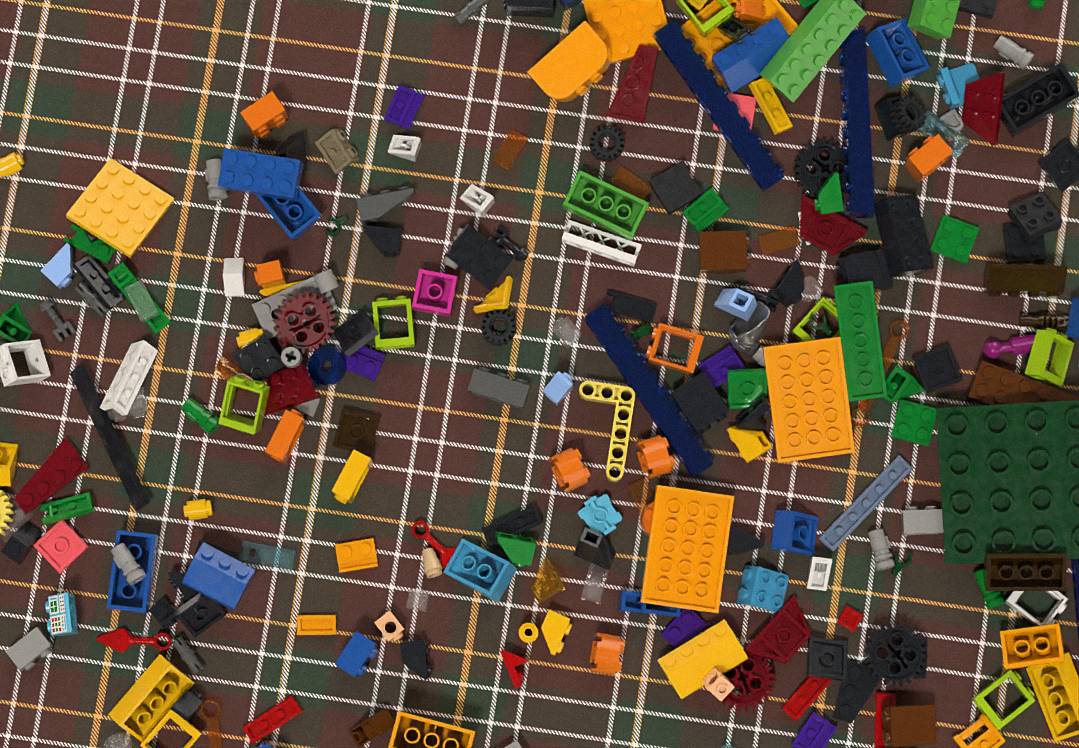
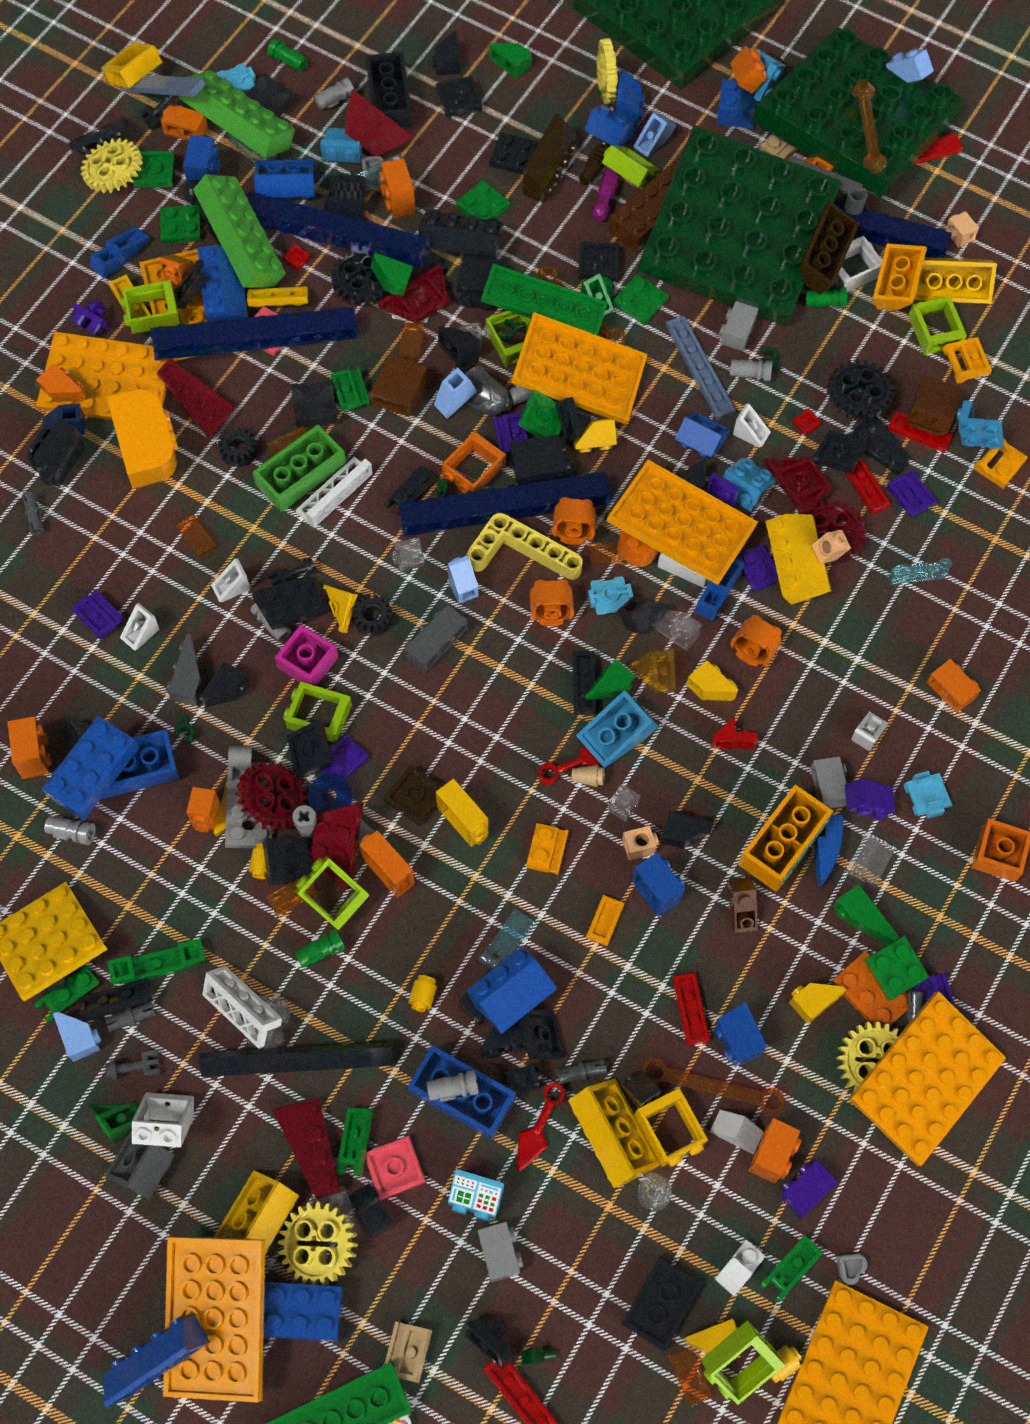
camera: 70 degrees left, 15 degrees down
(142, 301) = (161, 958): clear tile -> none
(234, 277) = (185, 853): white slope -> none
(337, 150) = (105, 696): dark tan bracket -> none
(528, 639) = (704, 707): yellow brick -> none
(734, 572) = (723, 490): none -> dark purple plate
(821, 101) = (296, 257): none -> red tile
(1035, 216) = (495, 130): black brick -> none

